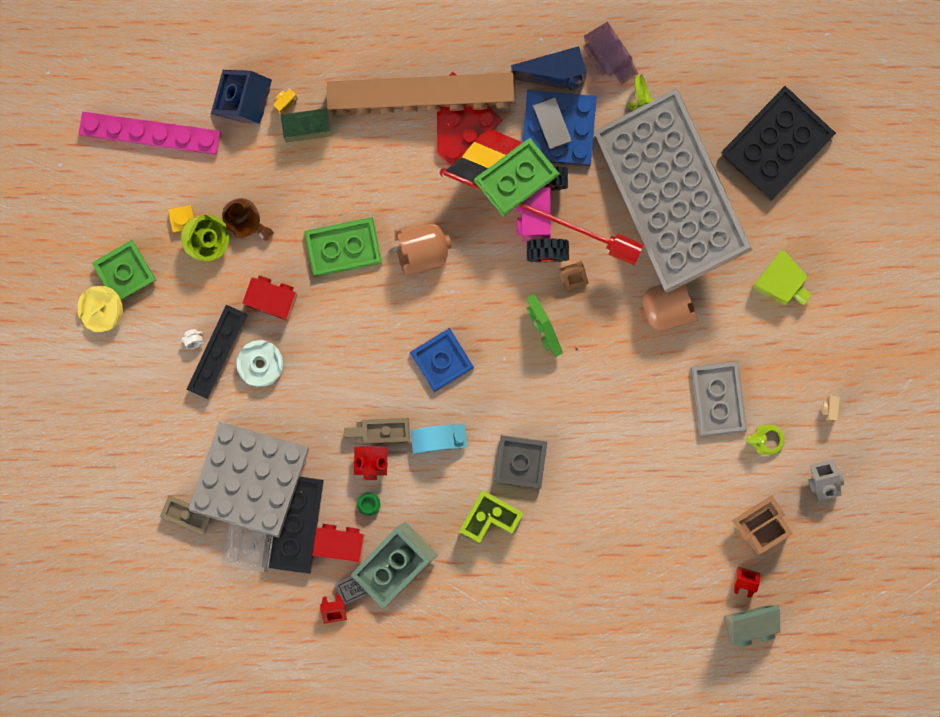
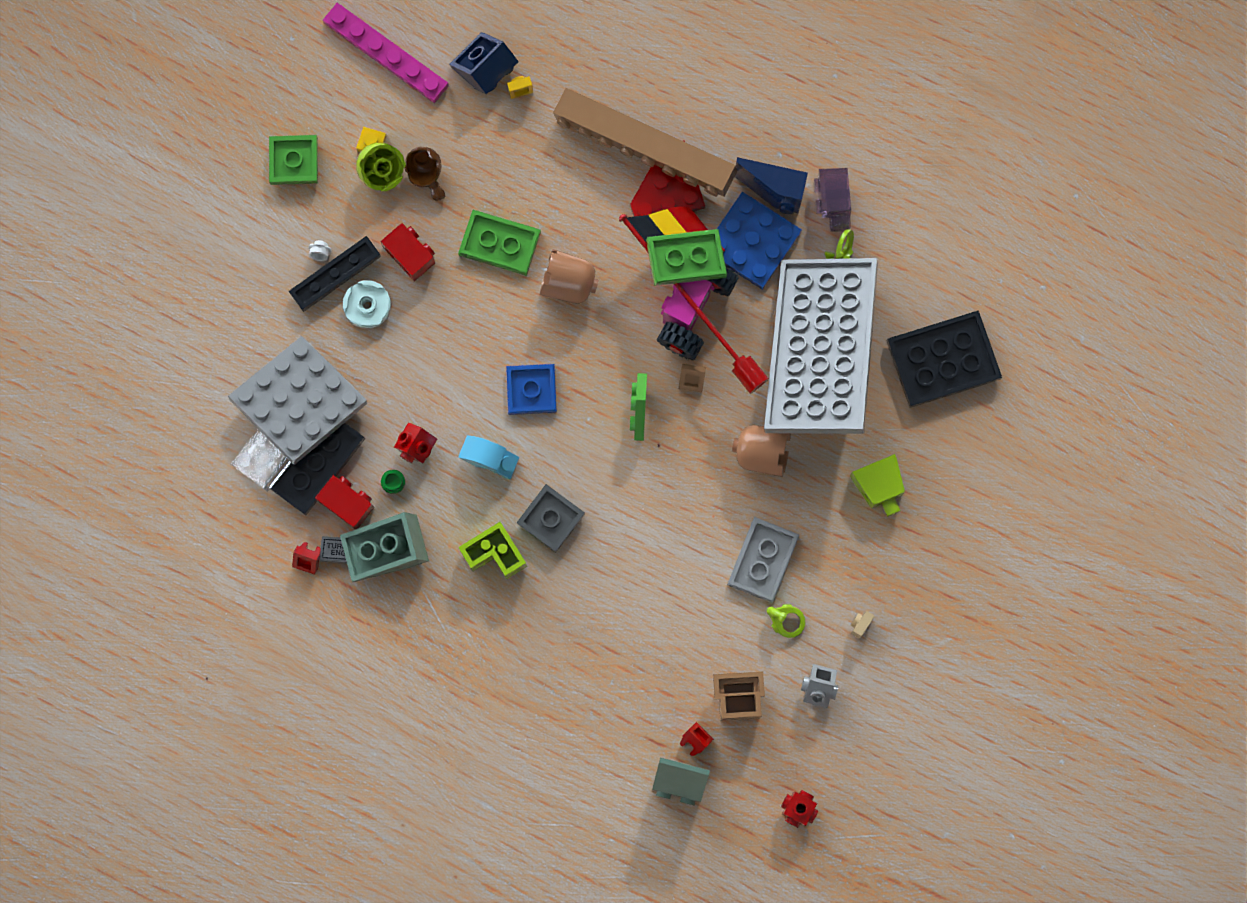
camera: 25 degrees right, 5 degrees down
(100, 308) = (253, 180): light yellow tile -> none
(178, 513) = (217, 395): dark tan plate -> none
(306, 125) = (526, 117): clear green brick -> none
(380, 431) = (440, 422): dark tan hinge -> none
(552, 123) = (747, 231): light grey tile -> none
(854, 592) = (789, 806): none -> red brick

